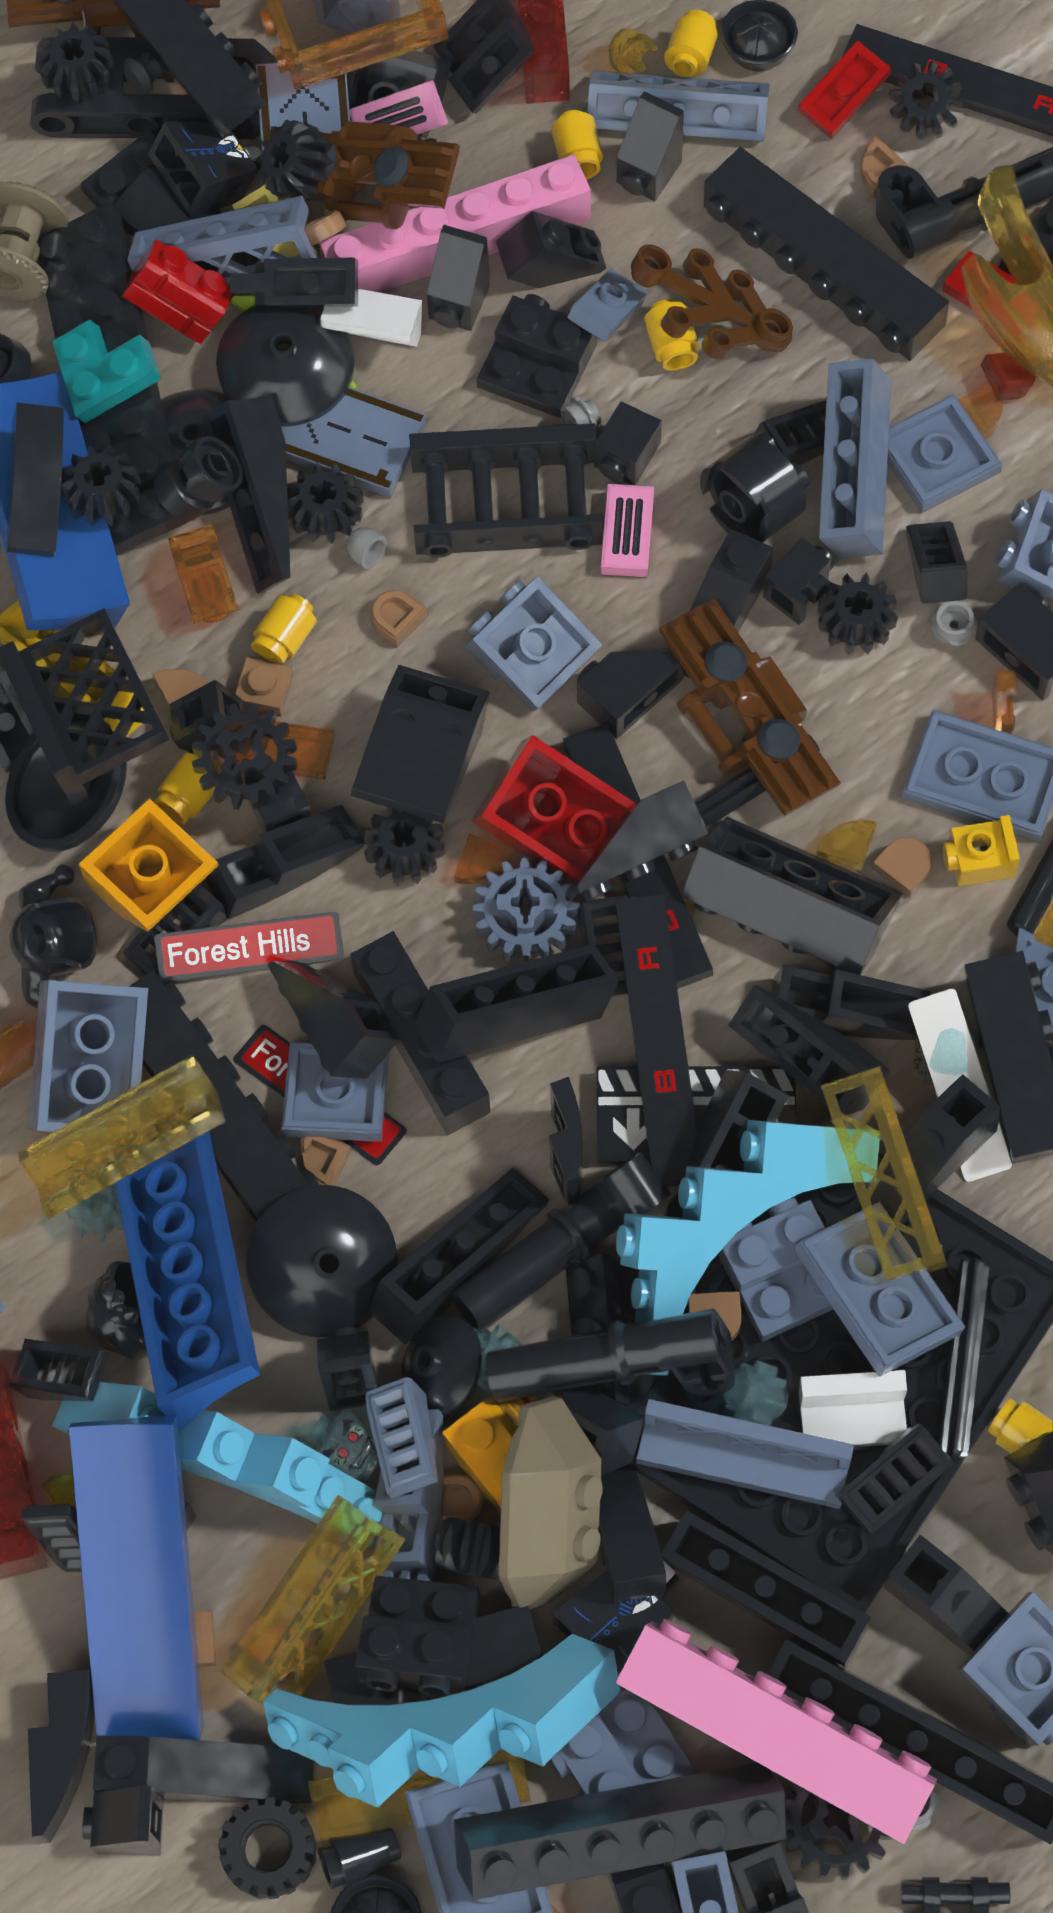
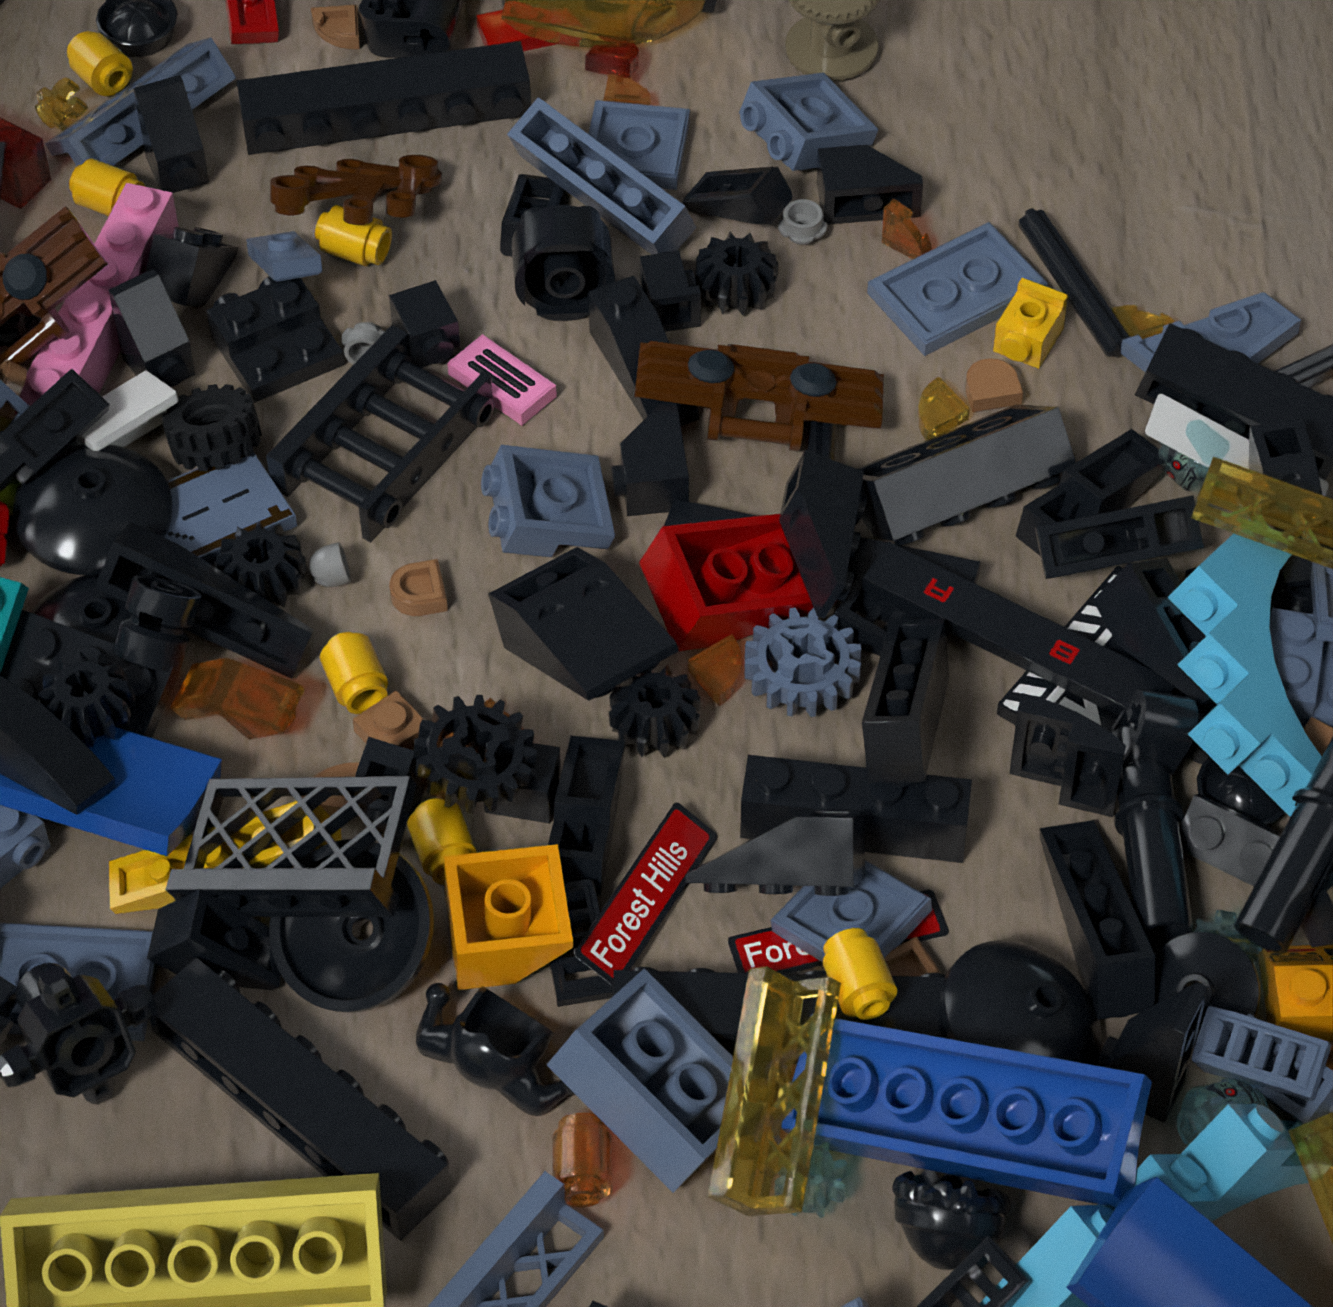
camera: 55 degrees left, 15 degrees down
(254, 1128) = (862, 971): none -> yellow brick
(414, 398) = (212, 427): none -> black tyre

